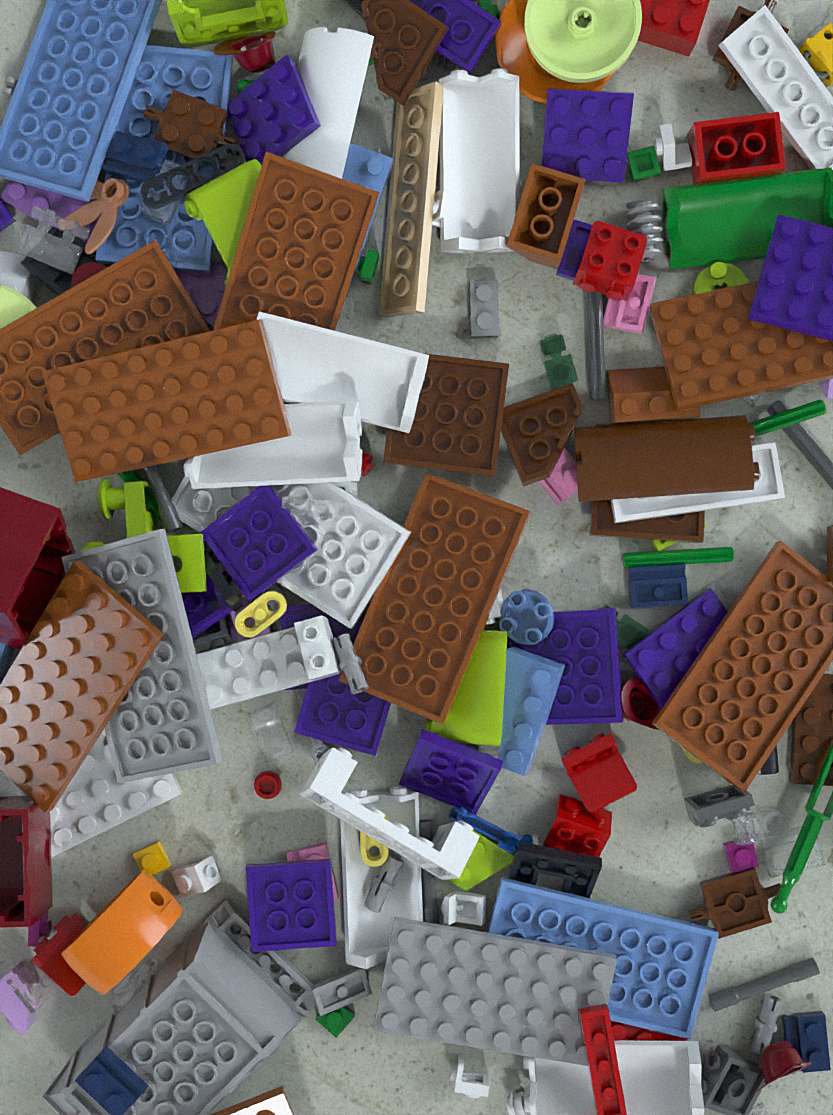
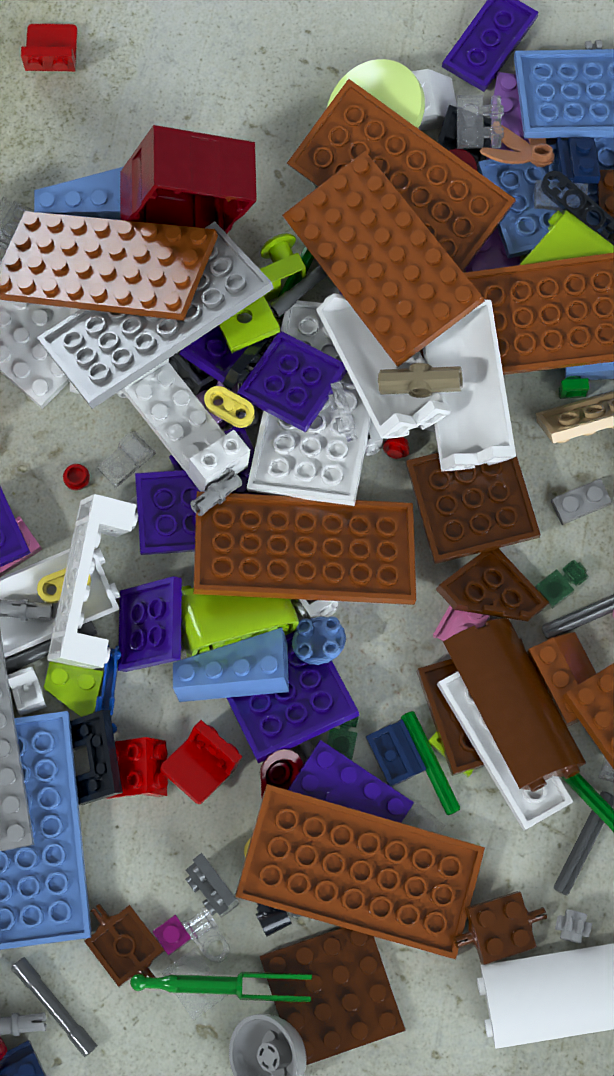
camera: 70 degrees right, 15 degrees down
(314, 417) = (420, 380): none -> dark tan piece

